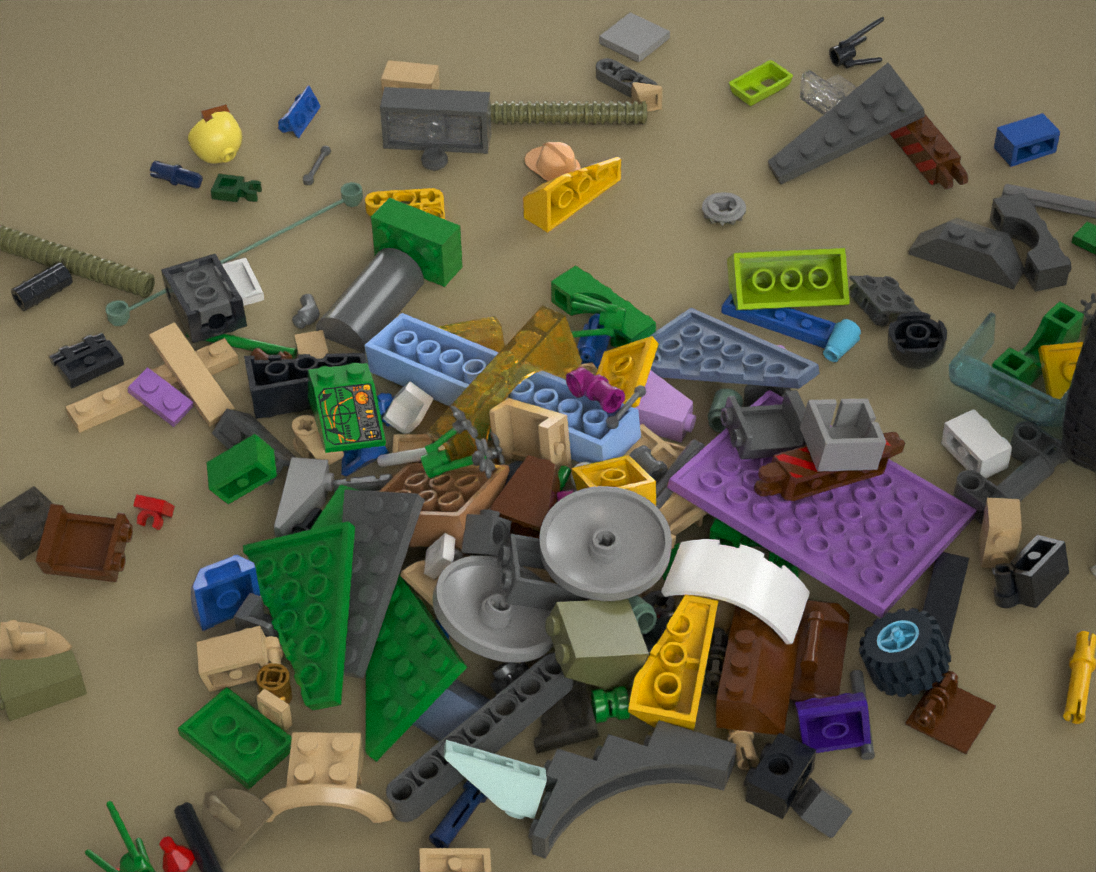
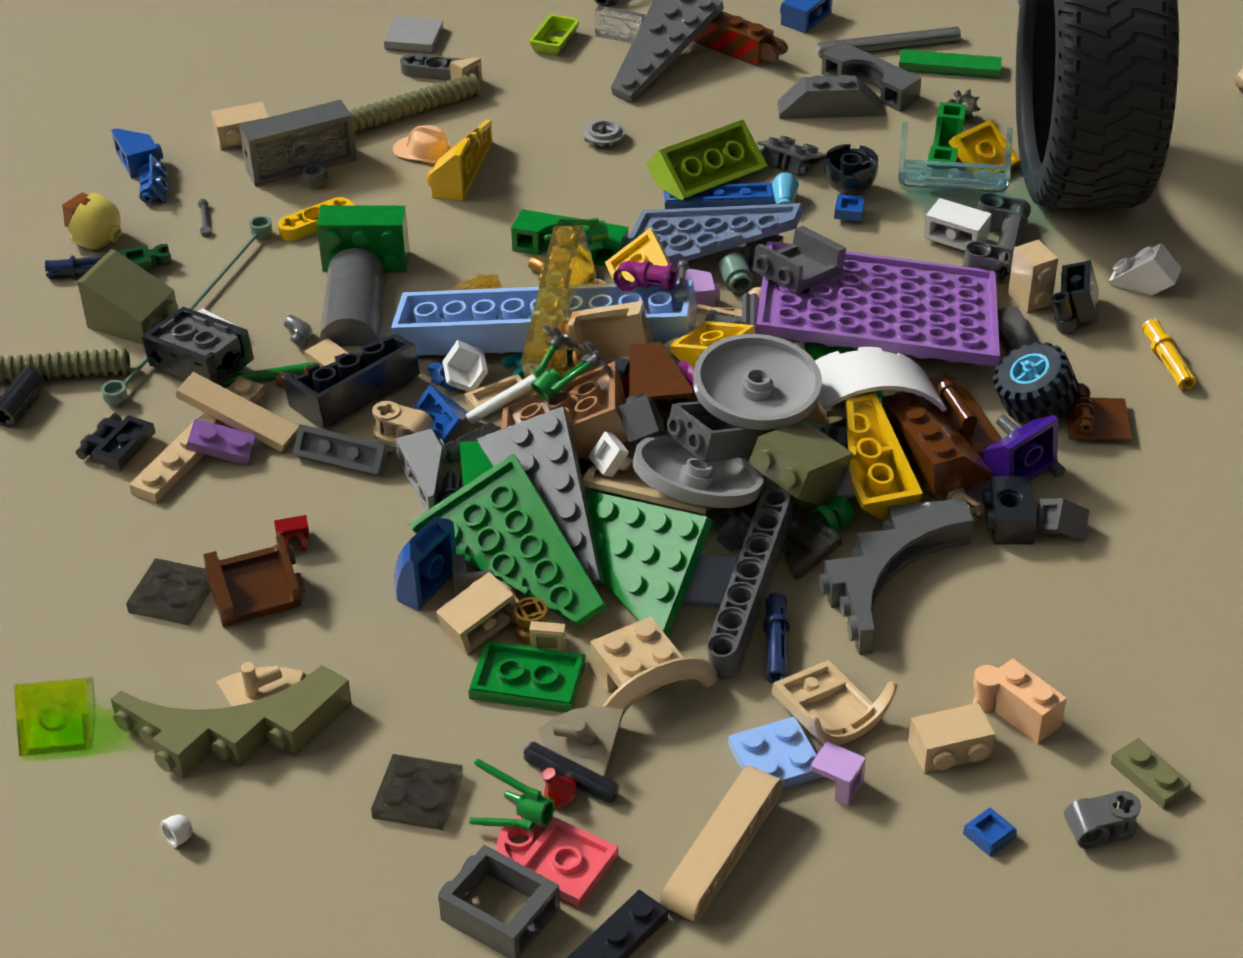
camera: 30 degrees left, 5 degrees down
(70, 802) = (417, 792): none -> clear smoke plate
(183, 223) = (124, 298): none -> olive slope
(241, 469) = (355, 465): green brick -> none
(304, 73) = (134, 149): none -> blue slope
(345, 407) = (416, 379): green slope -> none
(505, 781) = (803, 601): light aqua slope -> none
(796, 477) = (868, 272): reddish brown hinge -> none
(851, 442) = (874, 236): light grey piece -> none
(891, 381) = (849, 207): none -> blue plate

